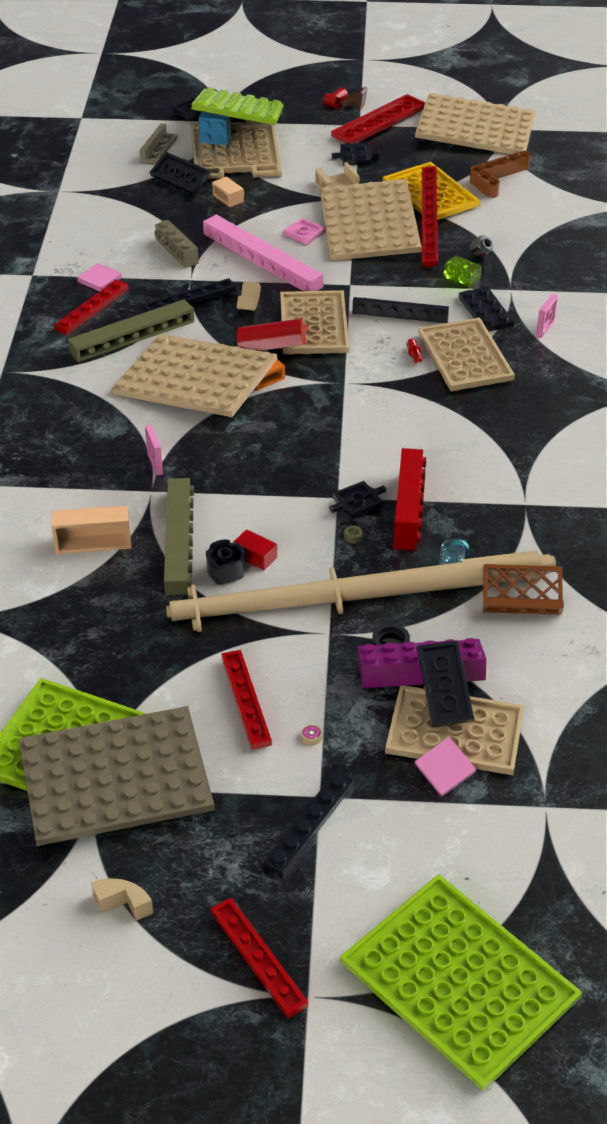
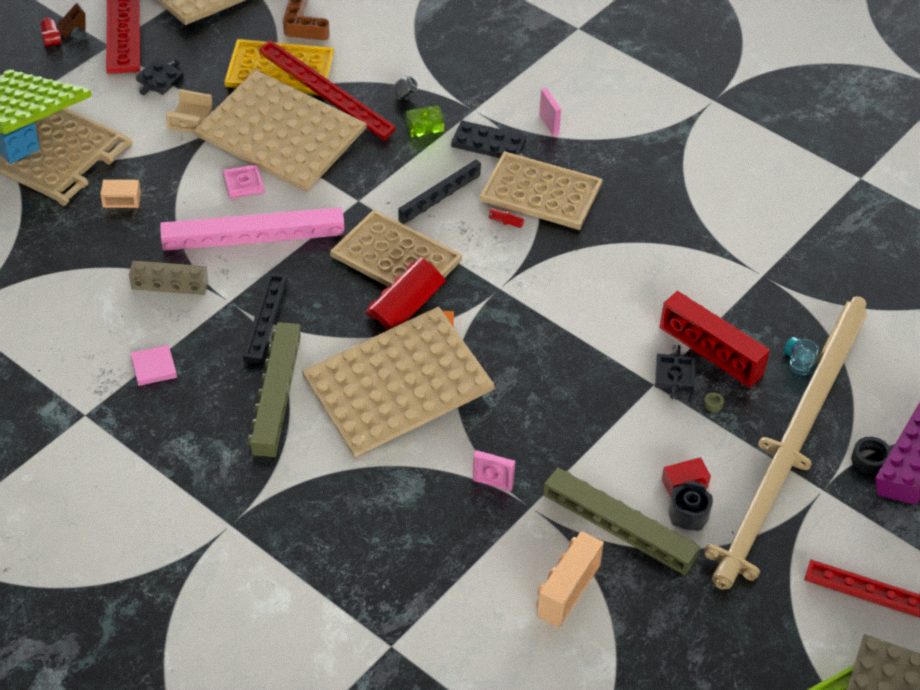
camera: 55 degrees left, 5 degrees up
(91, 307) = (198, 398): red plate -> none
(180, 173) = (48, 208): black plate -> none
(249, 296) = (313, 278): tan brick -> none
(522, 605) = (888, 351): dark orange fence -> none

